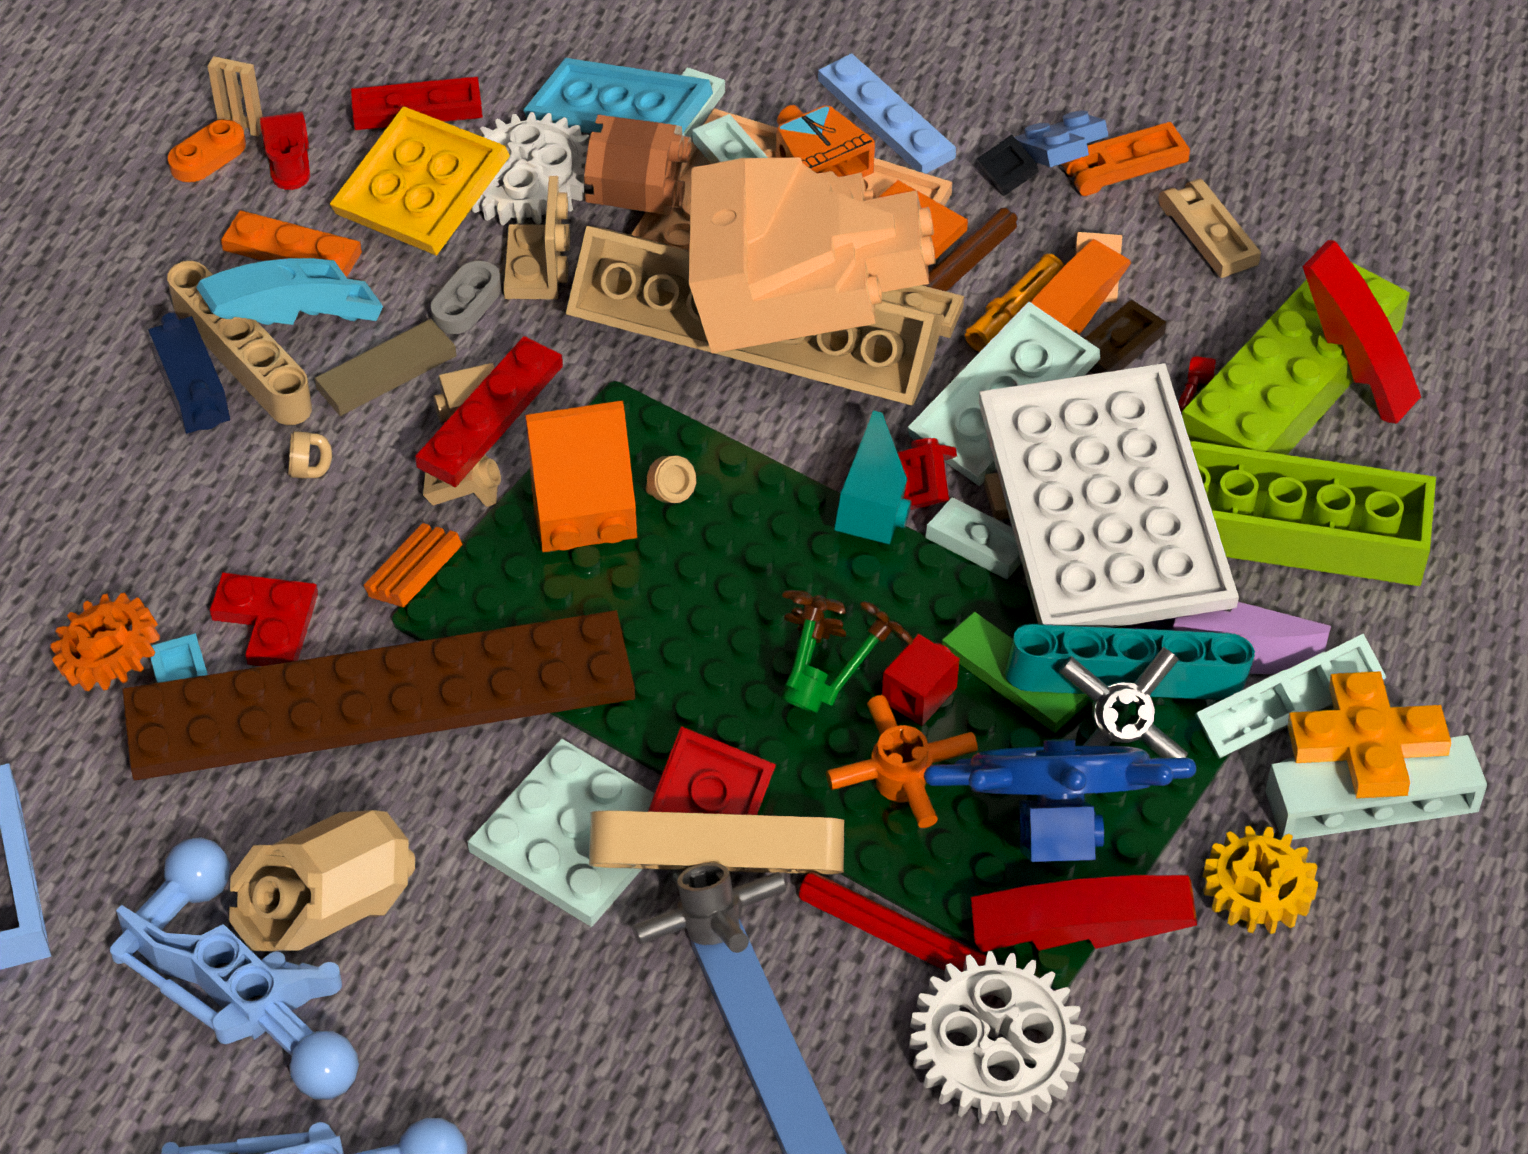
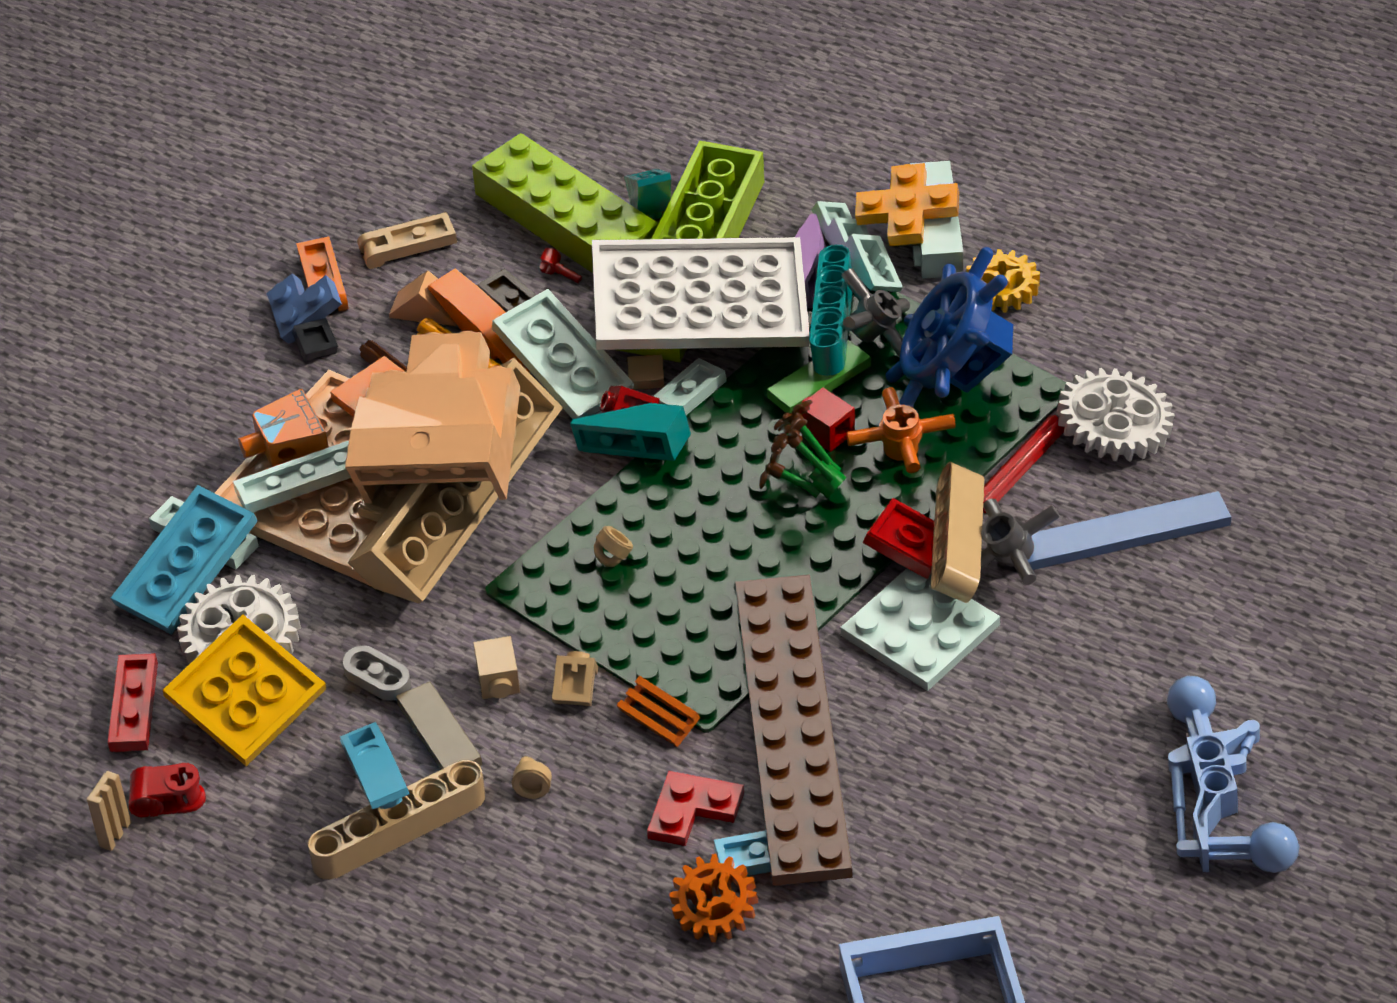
camera: 80 degrees left, 5 degrees down
(189, 373) = (429, 852): dark blue brick -> none
(196, 872) = (1031, 816): light blue piece -> none
(206, 150) = (142, 851): orange plate -> none
(274, 239) = (281, 793): orange plate -> none
(320, 880) = (971, 749): tan brick -> none
(489, 411) = (531, 640): red plate -> none
(534, 252) = (339, 612): tan bracket -> none
(581, 476) = (633, 578): orange slope -> none
(636, 164) = (283, 534): nougat brick -> none
(887, 114) = (224, 410): light blue plate -> none
(1082, 909) = (1029, 357): red slope -> none
(1323, 428) = (649, 191): none -> teal slope
(1358, 323) = (564, 153): red slope -> none

